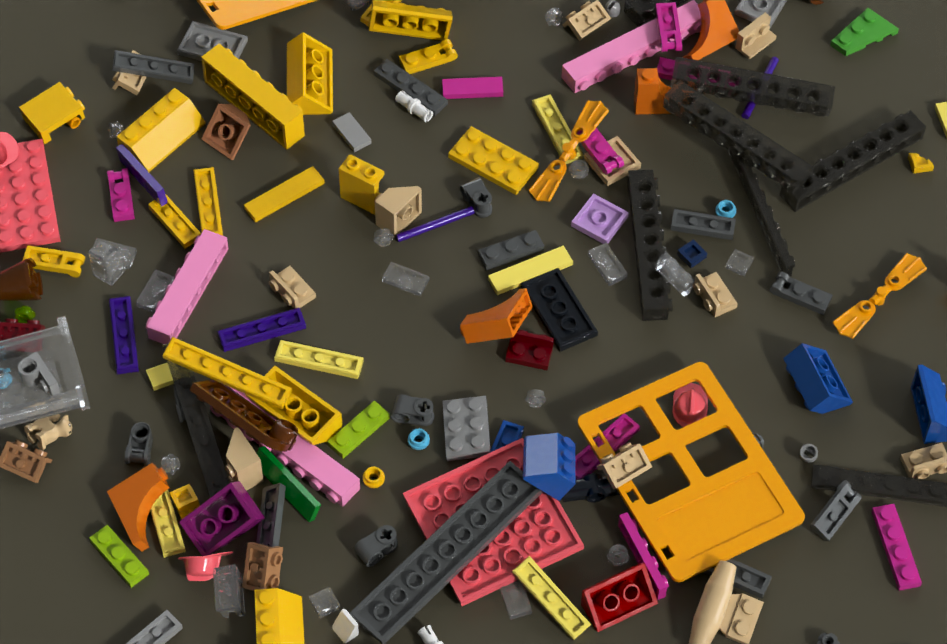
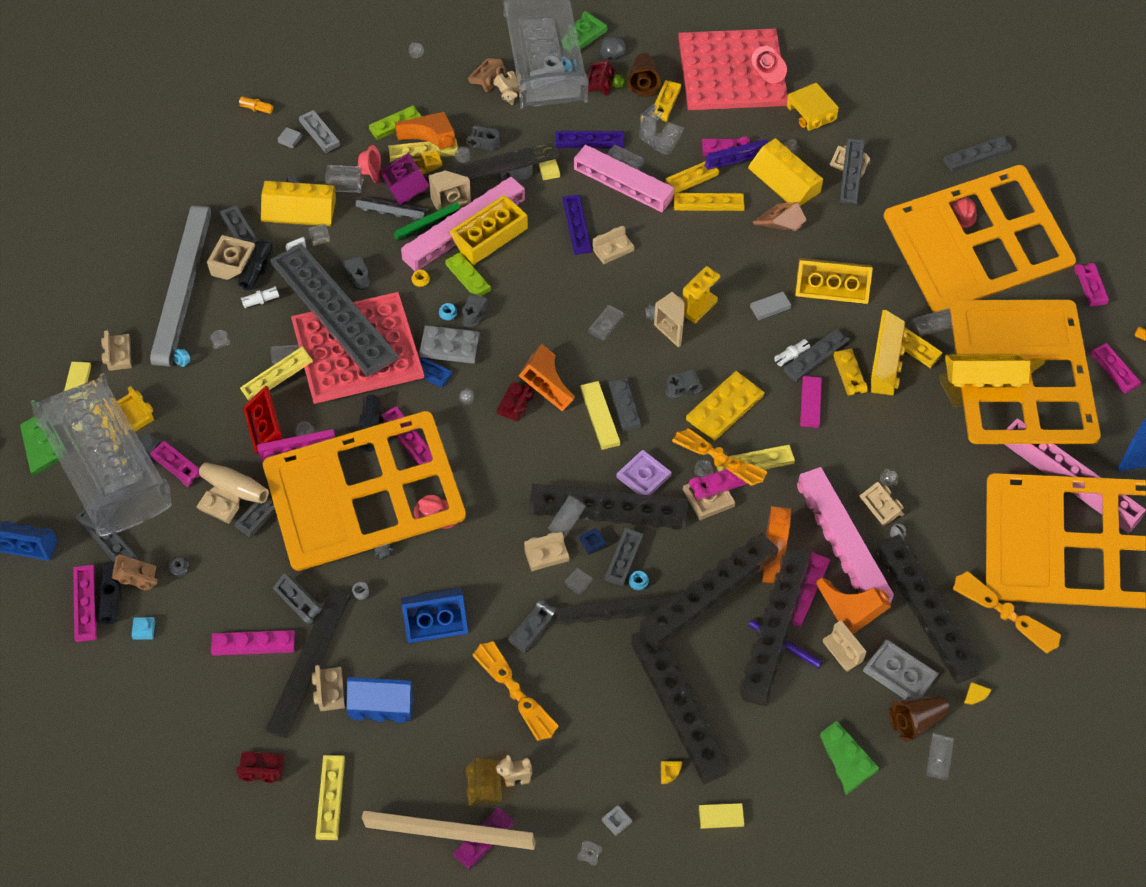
camera: 100 degrees right, 0 degrees up
(202, 38) = (872, 222): light grey tile -> none
(227, 373) = (520, 179): yellow tile -> none
(241, 413) = (481, 186): reddish brown plate -> none
(253, 96) = (809, 232): yellow brick -> none
(262, 566) = (353, 197): medium nougat bracket -> none
(284, 194) = (710, 251): yellow tile -> none
(319, 359) = (540, 258): light yellow tile -> none
(435, 224) = (660, 349): dark purple bar -> none
(549, 463) = (389, 381): blue slope -> none
(559, 309) = (555, 430): black tile -> none
(607, 264) = (593, 472): clear plate -> none
(625, 465) = (372, 433): tan bracket -> none
(668, 26) = (854, 559): dark pink plate -> none

